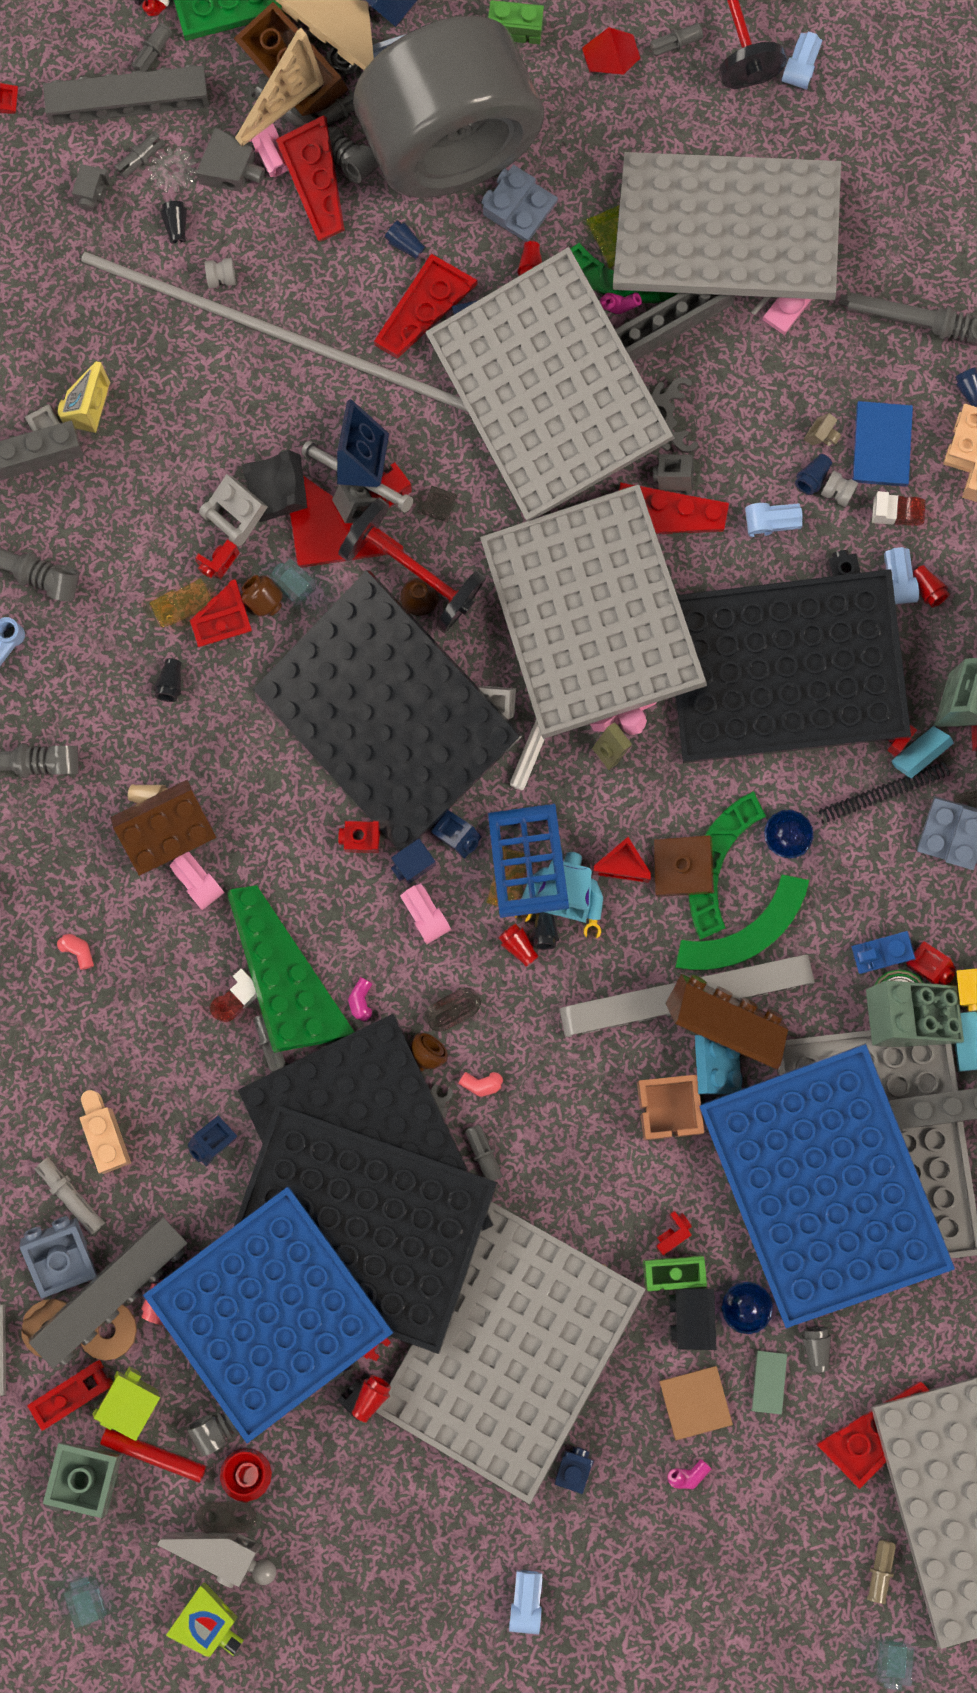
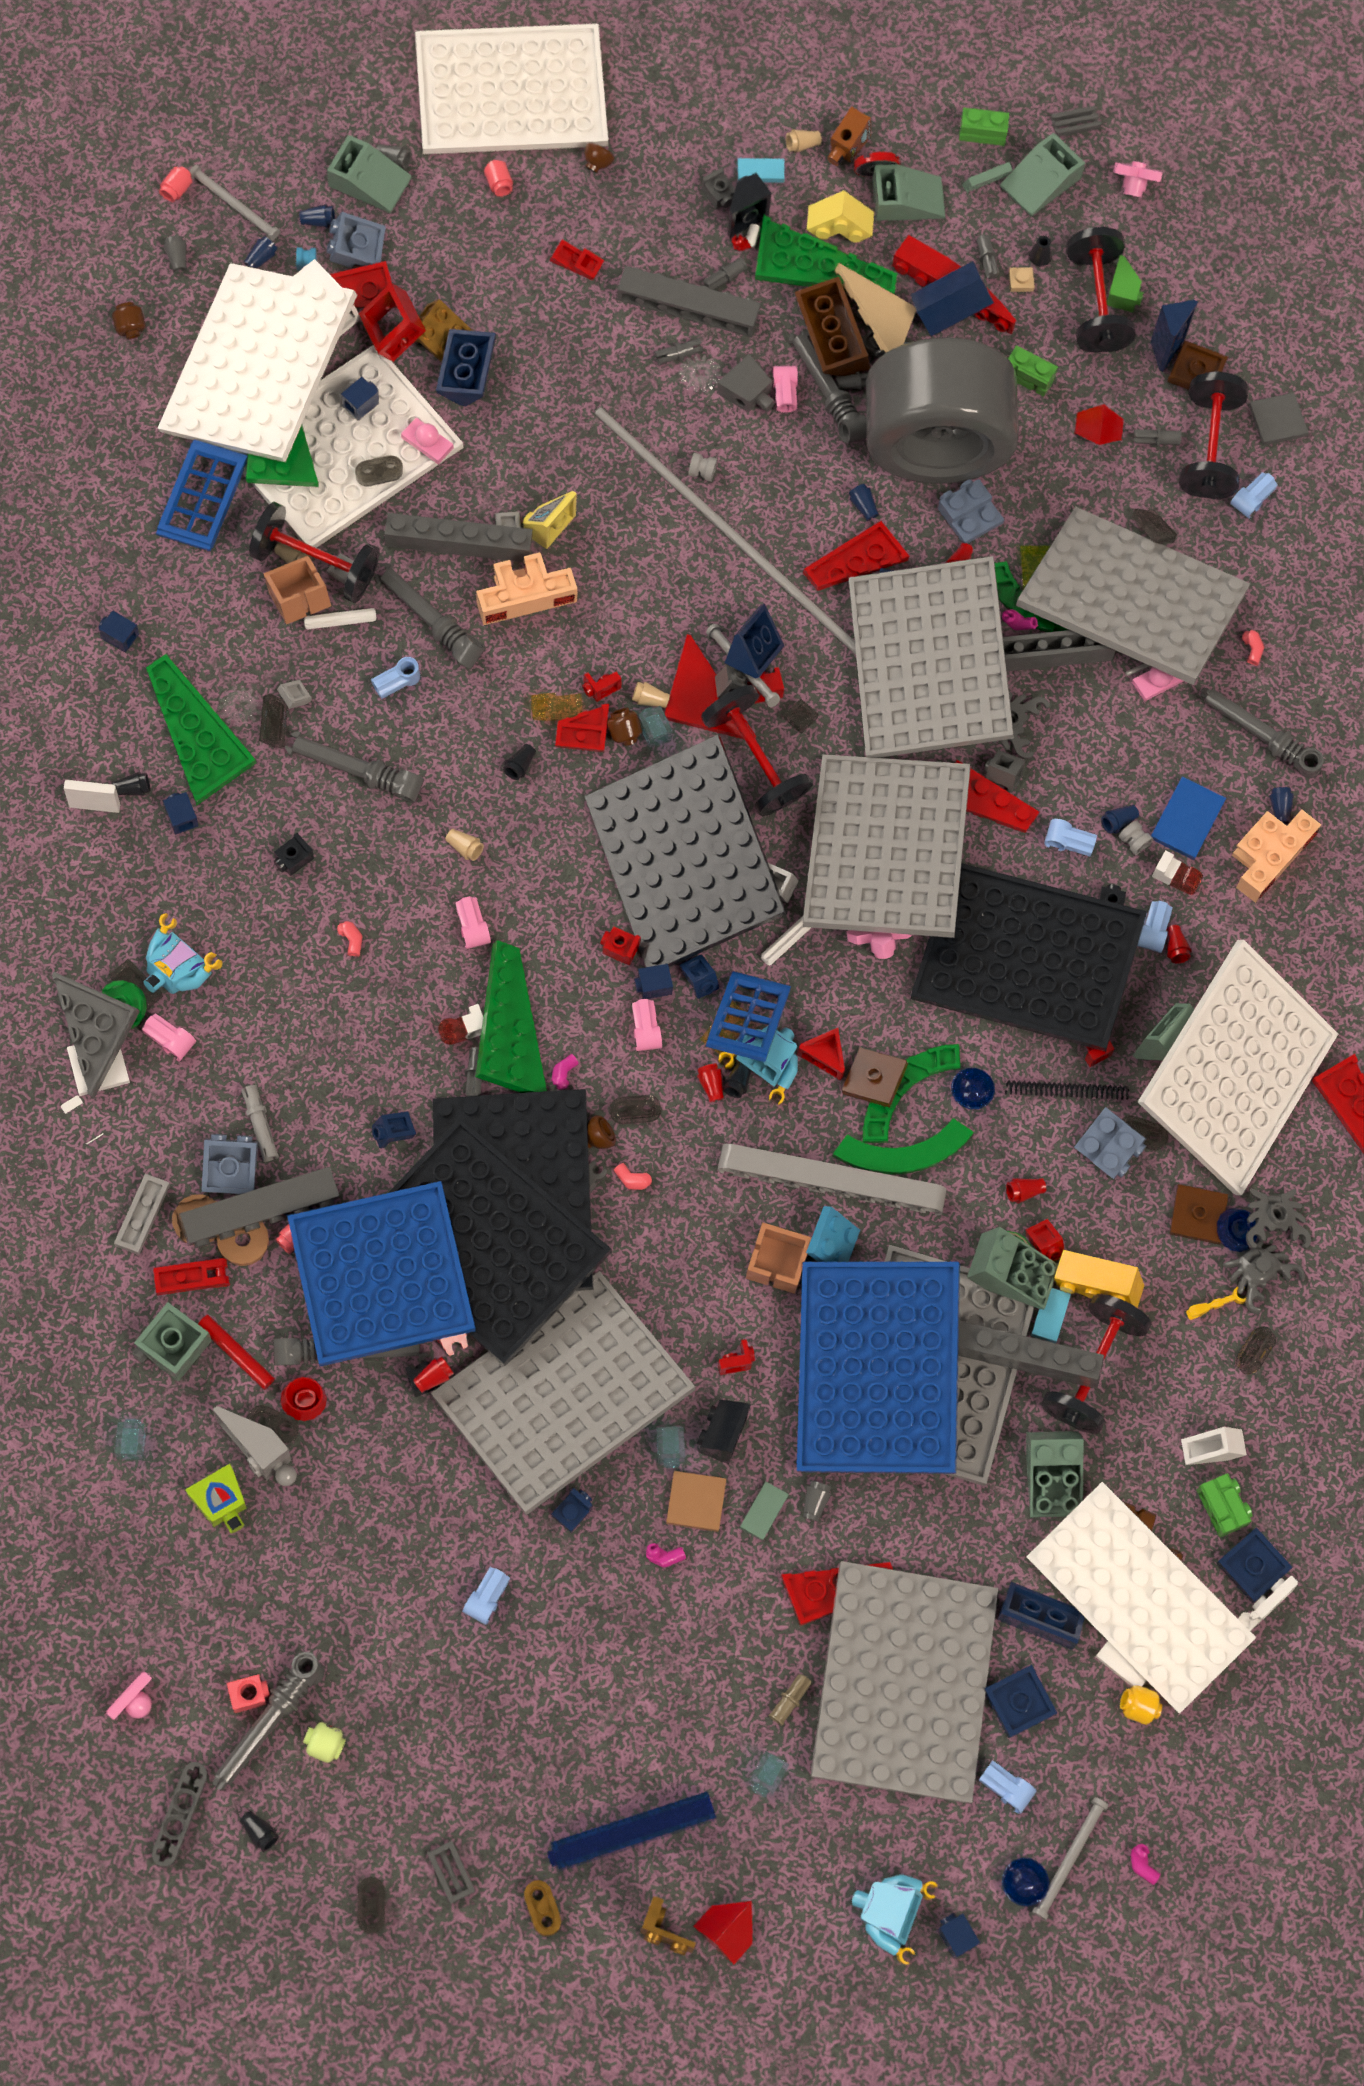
camera: 15 degrees right, 10 degrees down
(90, 187) = (627, 359): dark grey brick -> none
(93, 490) = (525, 590): none -> light nougat piece
(103, 1134) = (309, 1086): light nougat brick -> none
(127, 1404) = (233, 1297): lime plate -> none
(162, 827) = (464, 869): reddish brown brick -> none
(174, 219) = (684, 411): black cone -> none
(239, 503) = (638, 647): light grey plate -> none
(273, 549) = (649, 695): none -> tan cone
(277, 484) = (673, 647): black brick -> none
(290, 83) = (822, 343): tan tile -> none
(312, 169) = (813, 417): red wing -> none
(418, 597) = (752, 781): reddish brown brick -> none
(483, 1153) = (610, 1230): dark grey axle -> none
(612, 746) = (857, 957): olive plate -> none
(645, 1358) = (670, 1446): none -> clear light blue brick
(674, 1273) = (718, 1385): bright green brick -> none
(716, 139) = (1154, 526): none -> clear smoke plate
(728, 1020) = (856, 1205): reddish brown slope -> none
(747, 1308) = (772, 1443): clear blue hat -> none
(822, 431) = (1142, 788): dark tan tile -> none
(875, 227) = (1256, 644): none -> coral arm
(883, 952) = (1010, 1214): blue hinge -> none
(886, 919) = (1024, 1189): none -> red cone
(922, 752) = (1112, 1070): medium azure tile -> none

